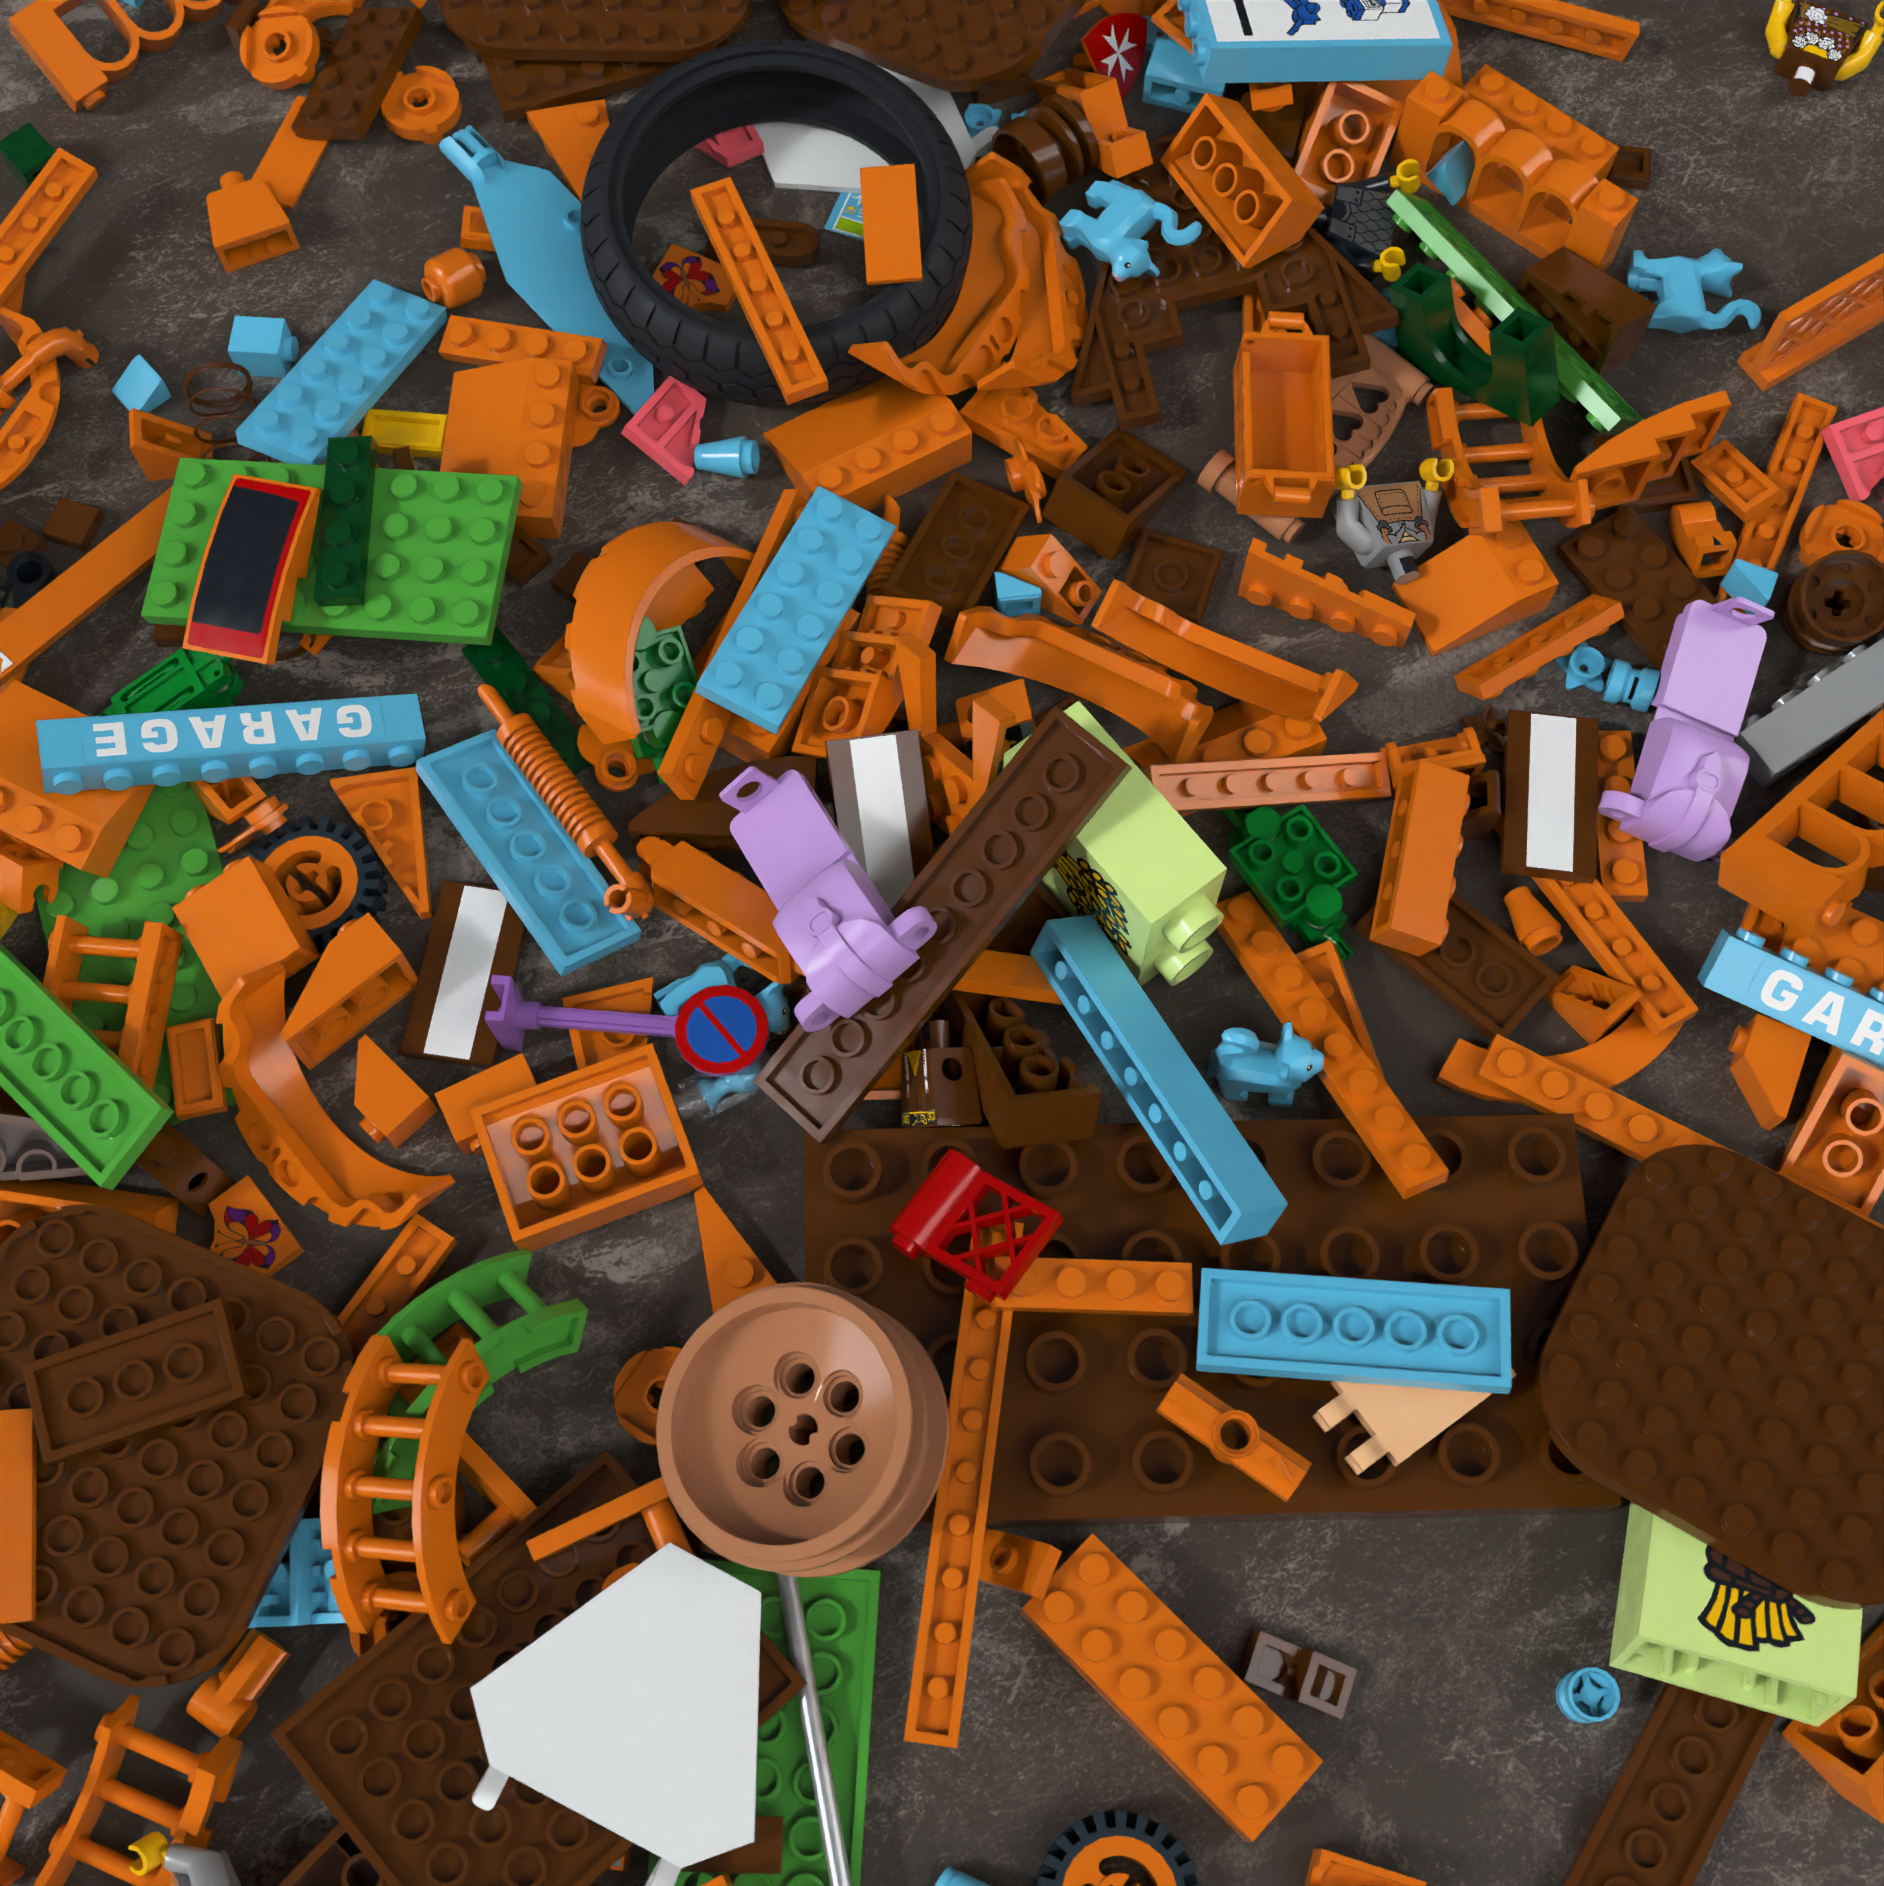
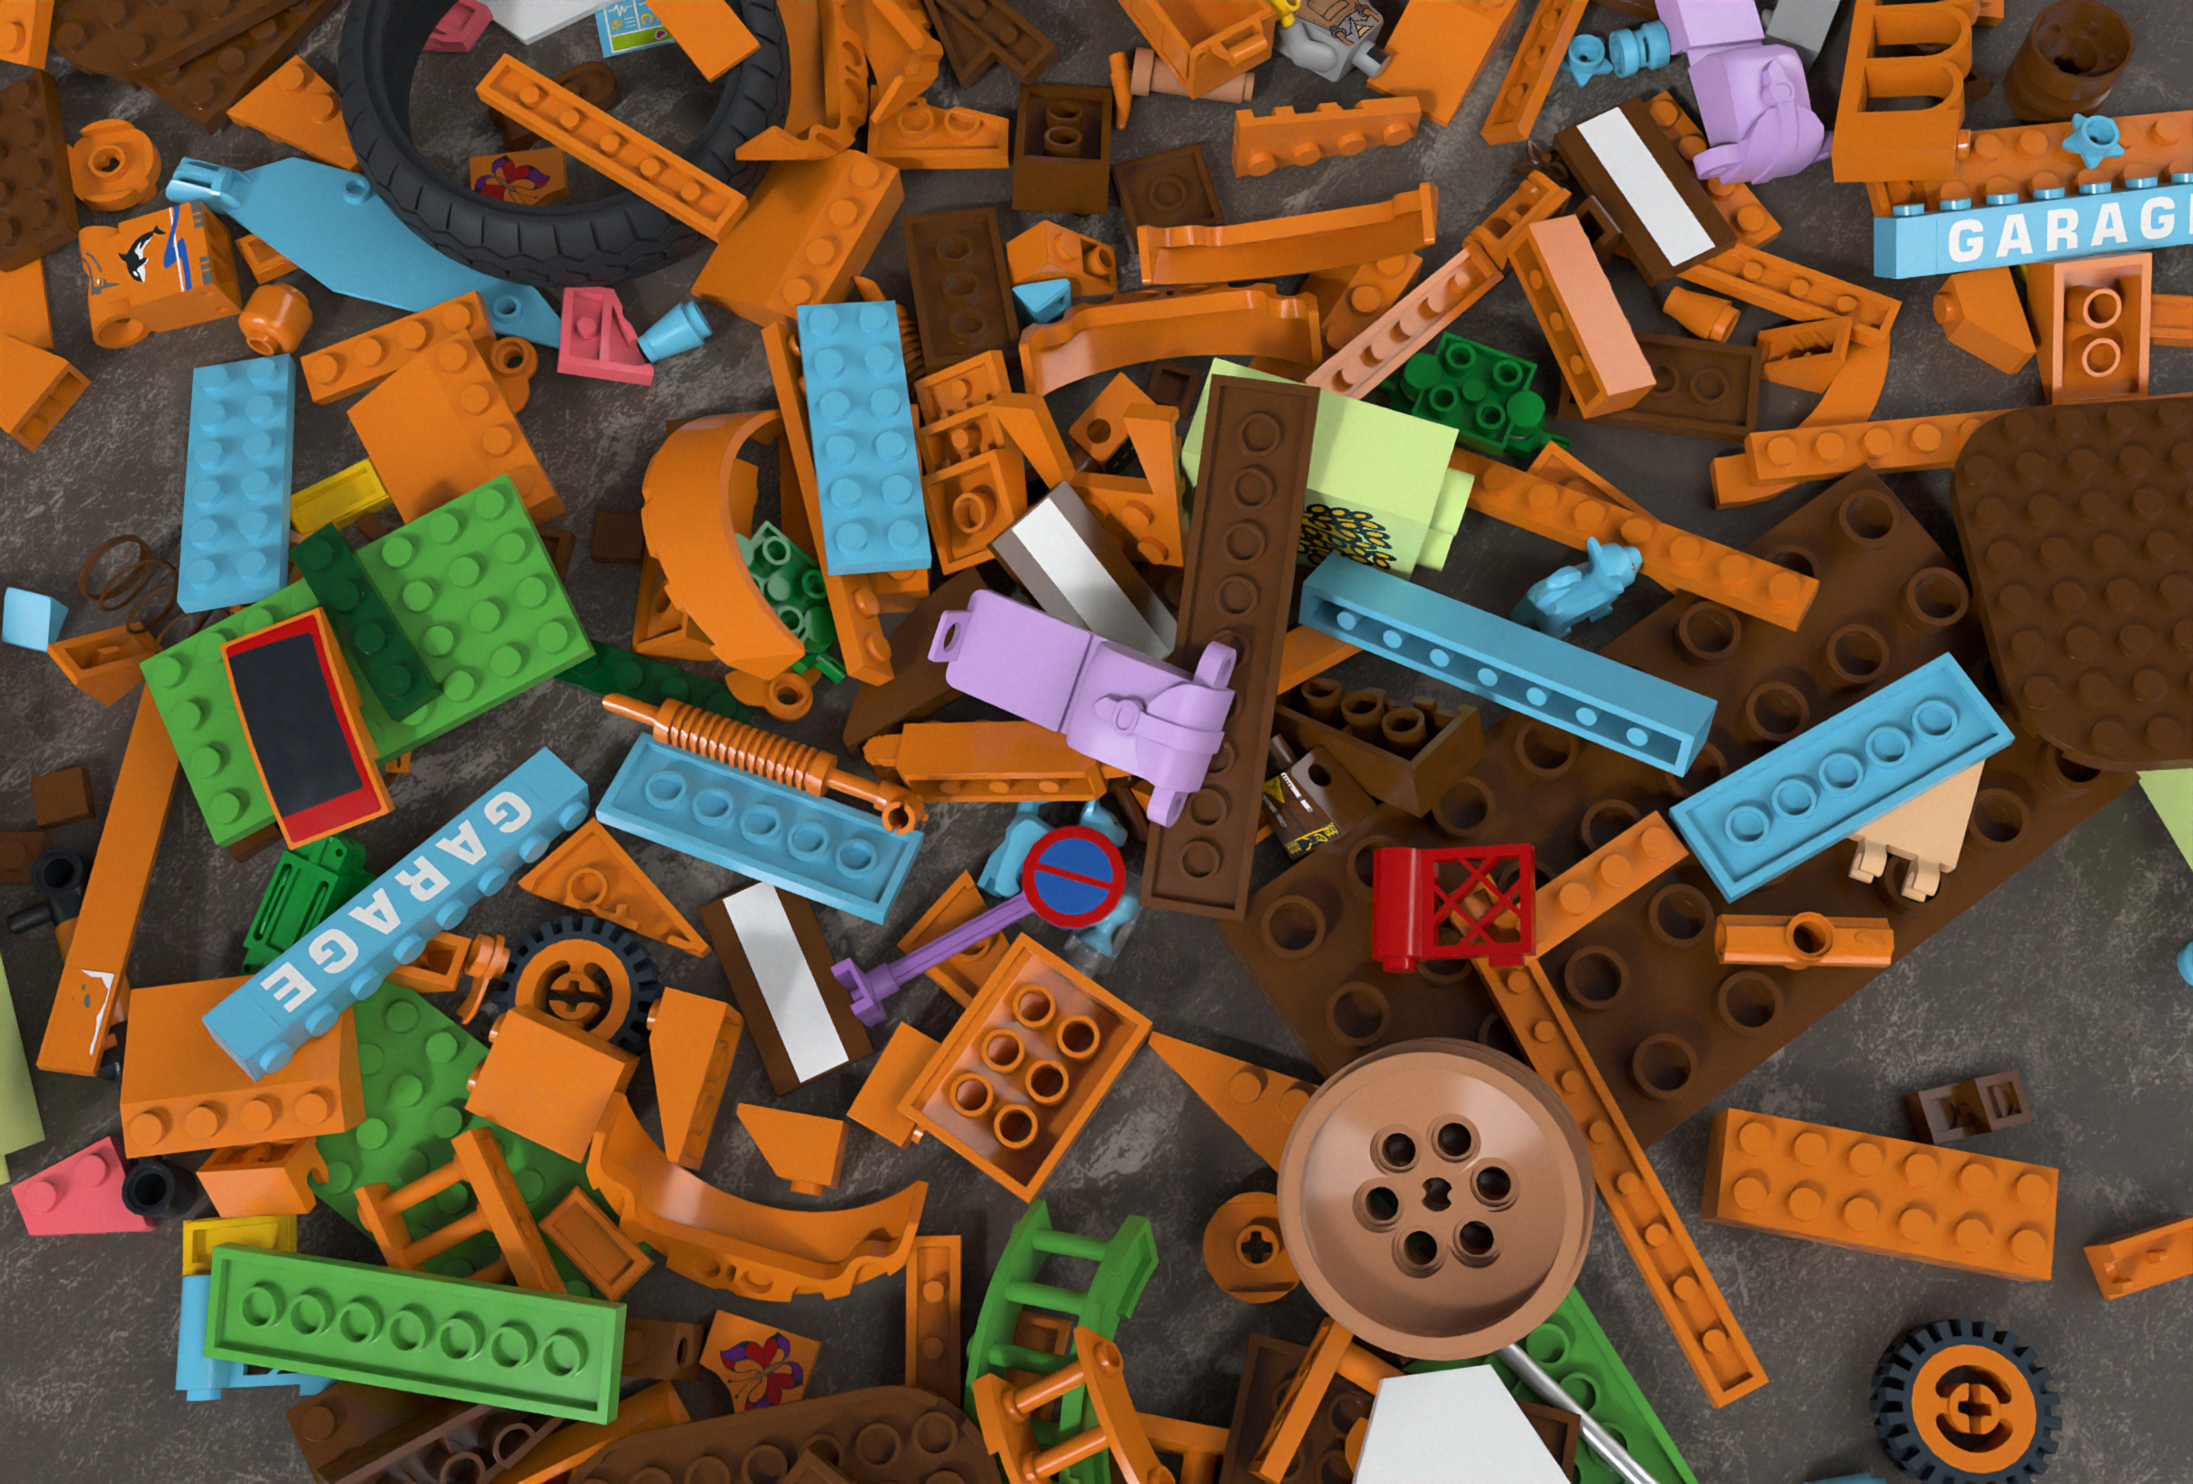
camera: 30 degrees left, 5 degrees up
(263, 346) = (130, 501): medium azure brick -> none
(397, 198) = (158, 274): none -> orange piece
(1017, 1563) = (1693, 1176): orange plate -> none
(1026, 477) = (977, 181): orange plate -> none
(1190, 483) = (1121, 82): none -> orange helmet

